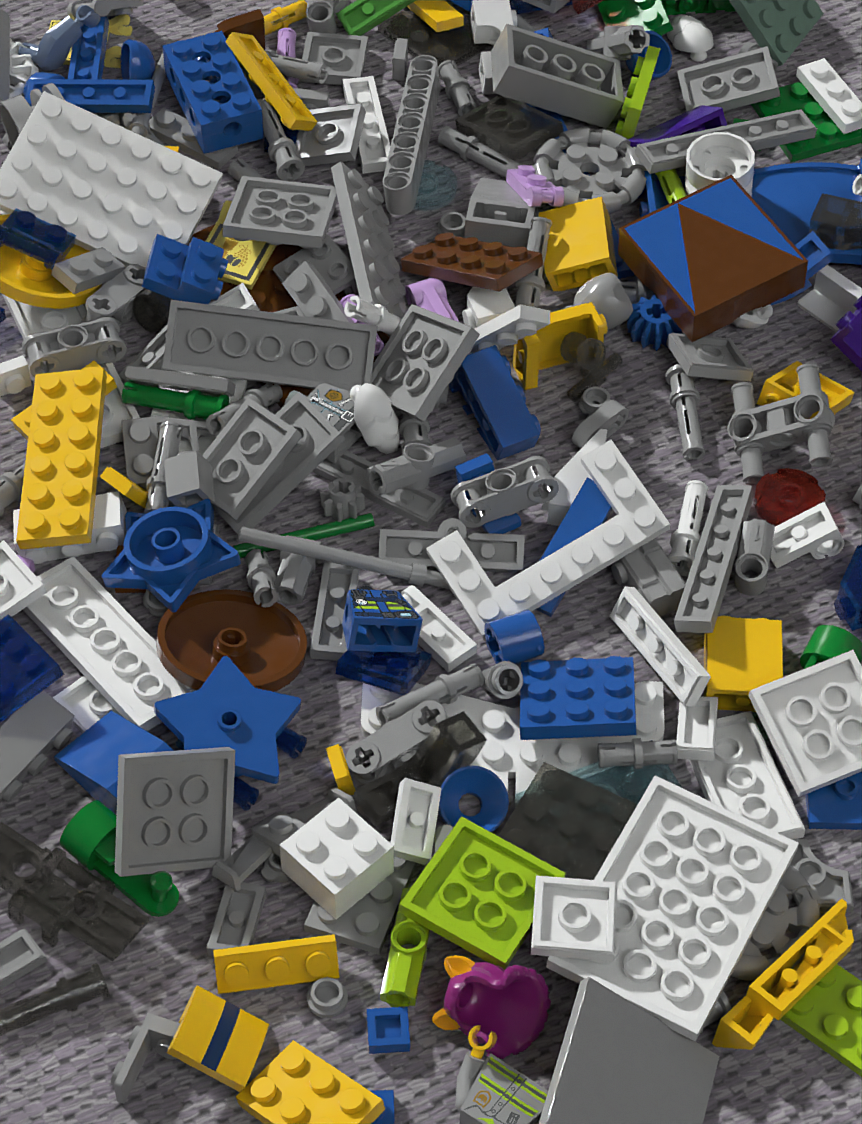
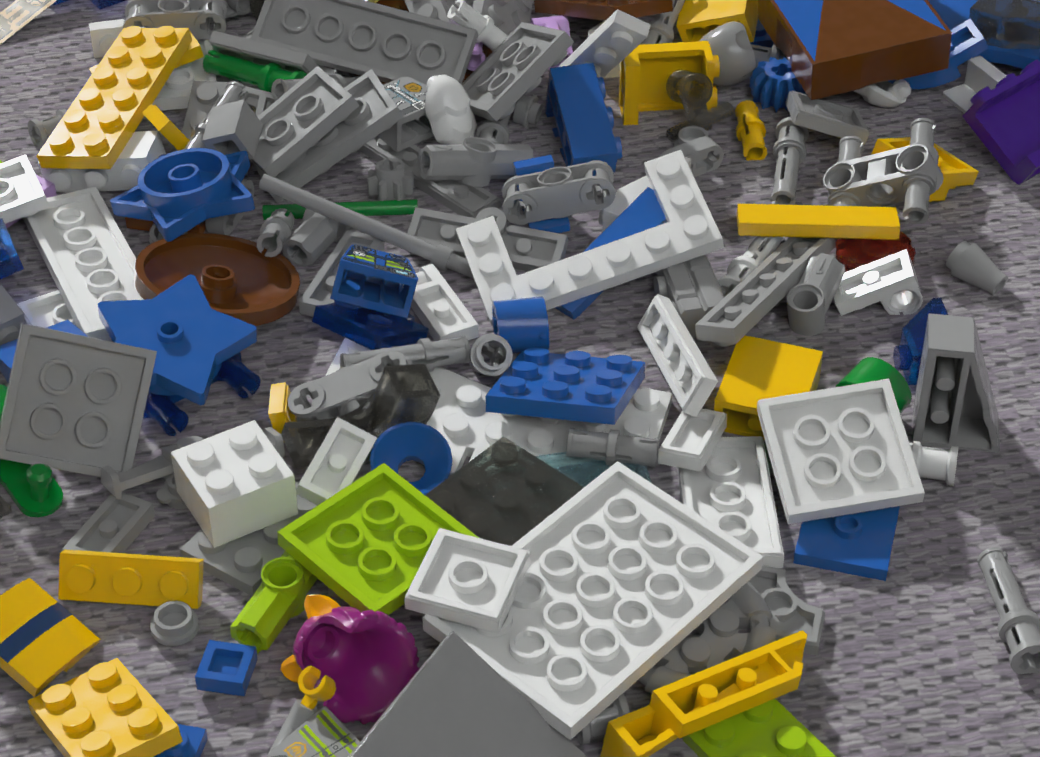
camera: 15 degrees right, 10 degrees down
(642, 379) = (750, 131): none -> yellow pin
(736, 479) = (818, 221): none -> yellow tile

